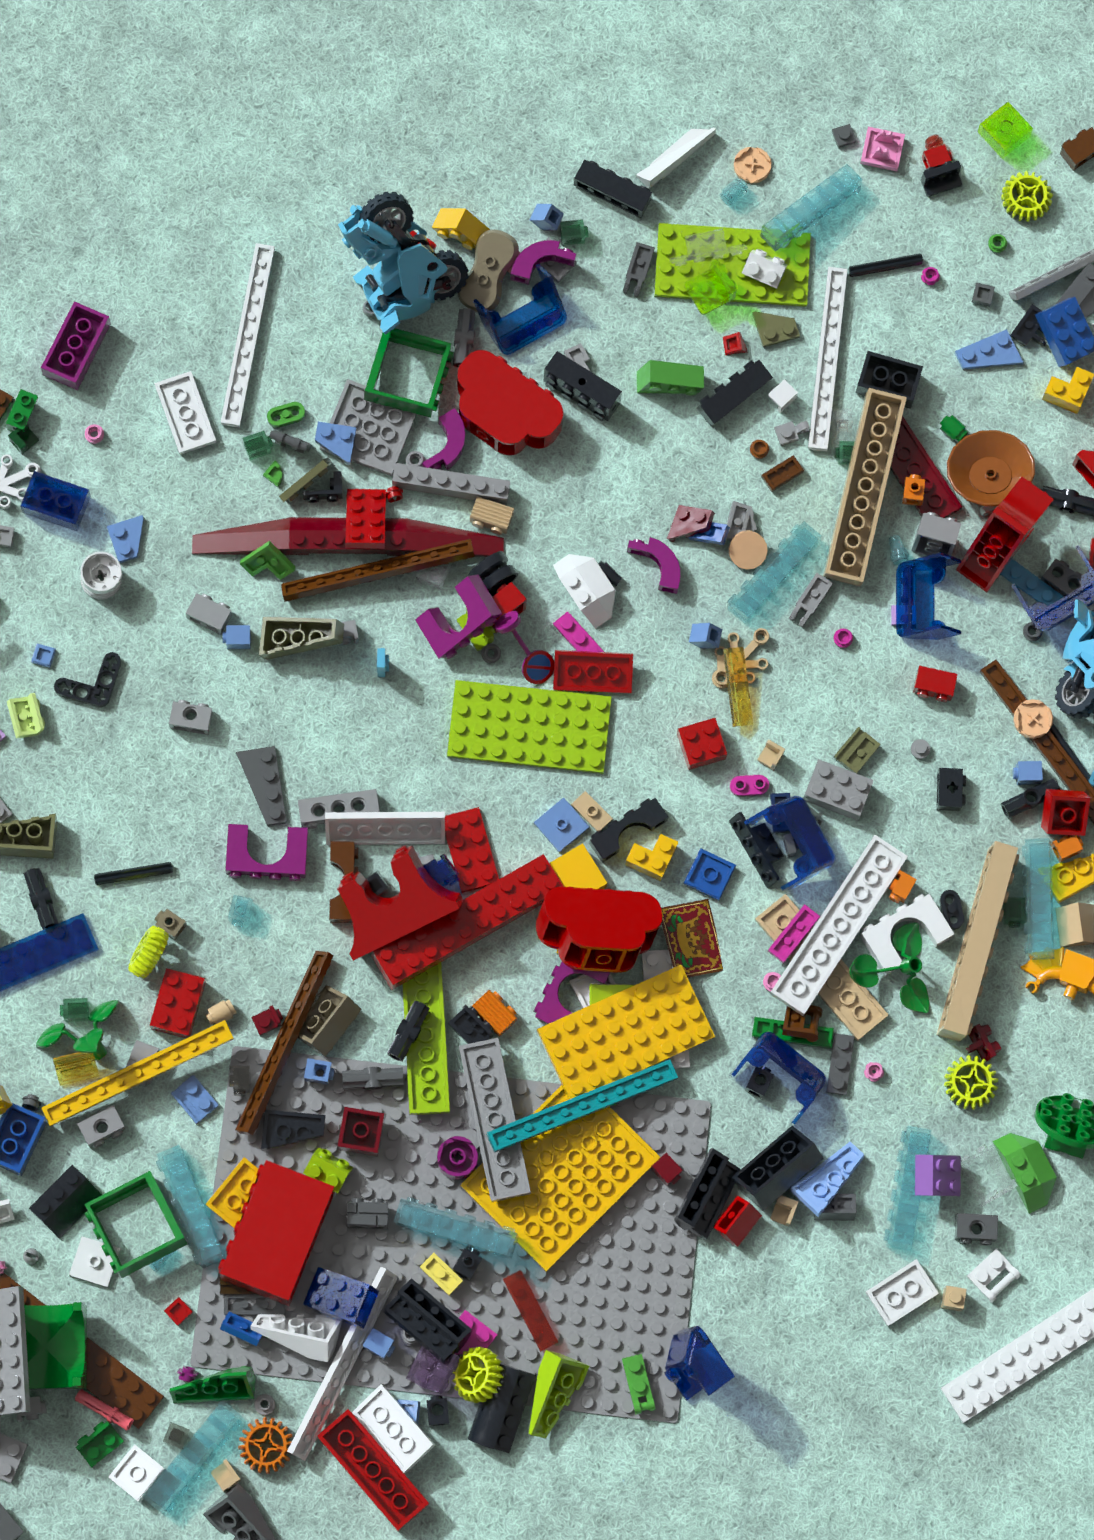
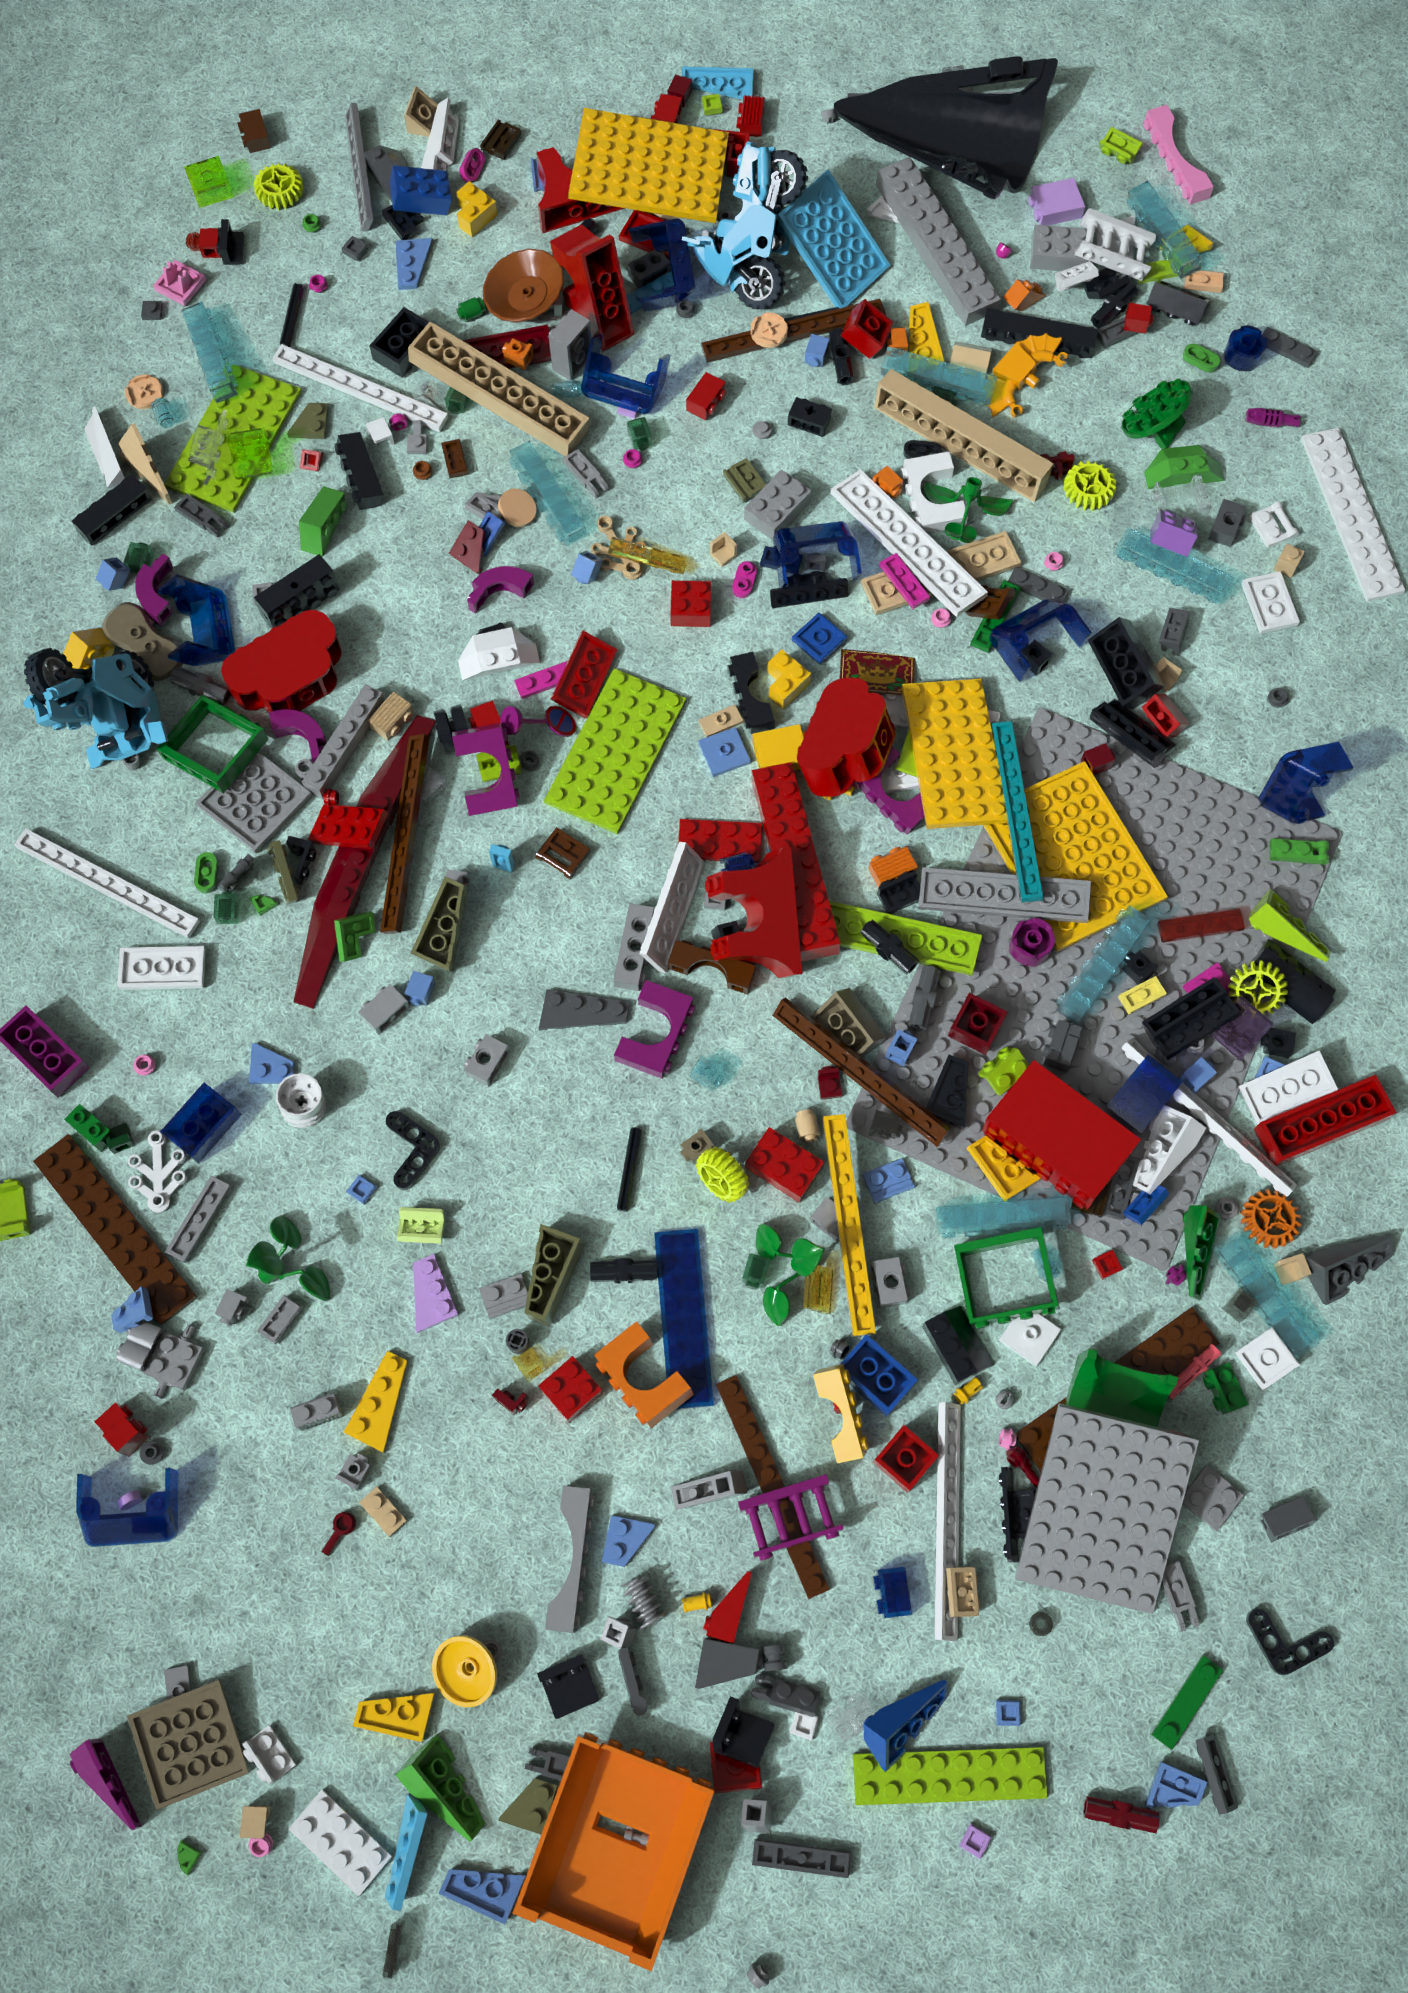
camera: 65 degrees left, 5 degrees down
(28, 1222) = (963, 1394): none -> yellow pin
(337, 439) = (253, 830): medium blue wing -> none
(415, 717) = (565, 847): none -> reddish brown plate
(677, 189) = (140, 461): none -> tan wedge
(764, 268) = (251, 406): white bracket -> none
(799, 1319) = (1280, 693): none -> dark grey plate
(805, 406) = (398, 419): none -> dark pink plate
(826, 1180) = (1151, 628): light blue wing -> none
(870, 635) = (639, 433): none -> clear green brick

